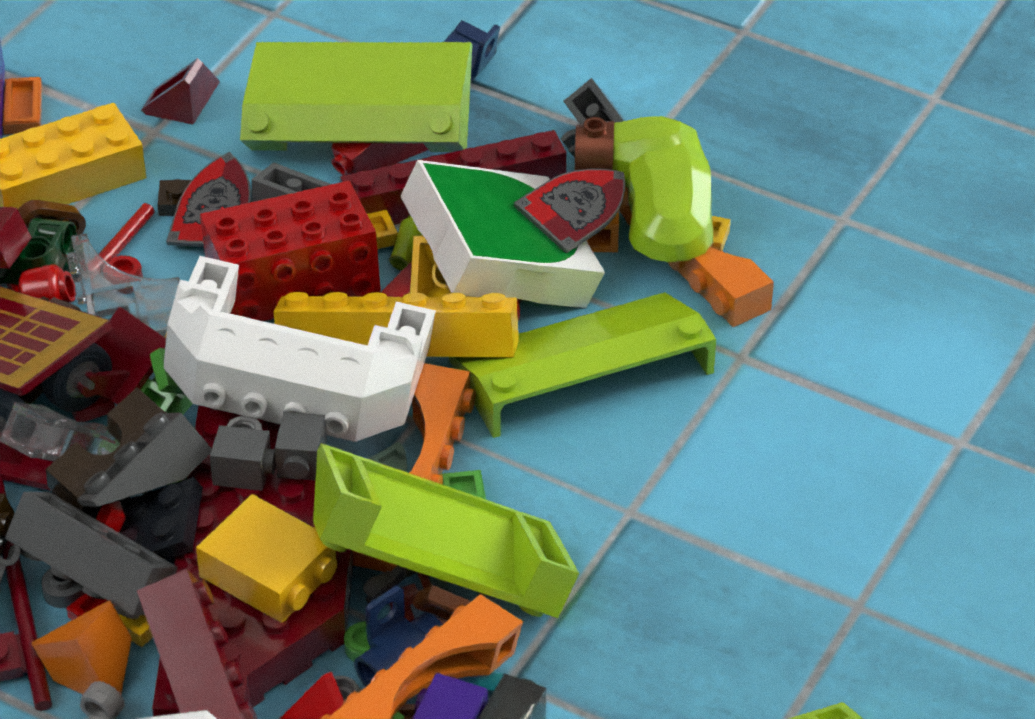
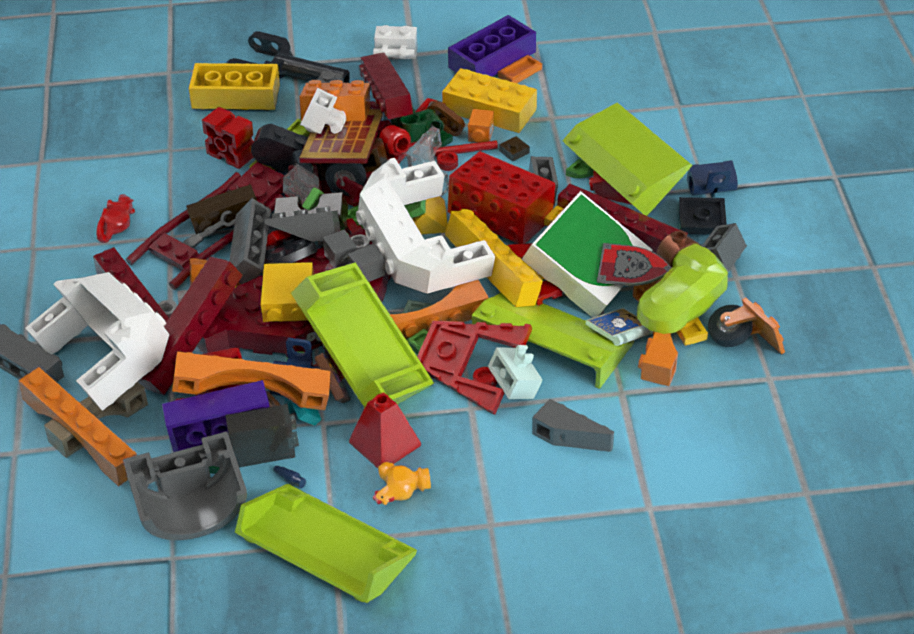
camera: 55 degrees right, 0 degrees up
(100, 431) = (312, 199): none -> bright green tile
(101, 200) = (480, 125): none -> orange brick
(183, 94) = (580, 108): slope -> none
(214, 187) = (520, 153): shield -> none
(296, 158) = (579, 169): none -> bright green tile
(513, 106) = (701, 214): none -> black plate
(523, 471) = (450, 348): none -> red wing
(593, 467) = (484, 376): none -> red tile
(611, 616) = (383, 432): none -> red slope
(629, 424) = (515, 372): none -> light aqua brick
(640, 287) = (619, 326): none -> piece
(715, 649) = (400, 482): none -> light orange animal
(745, 186) = (734, 325): none -> plate
(770, 434) = (570, 429): none -> dark grey slope

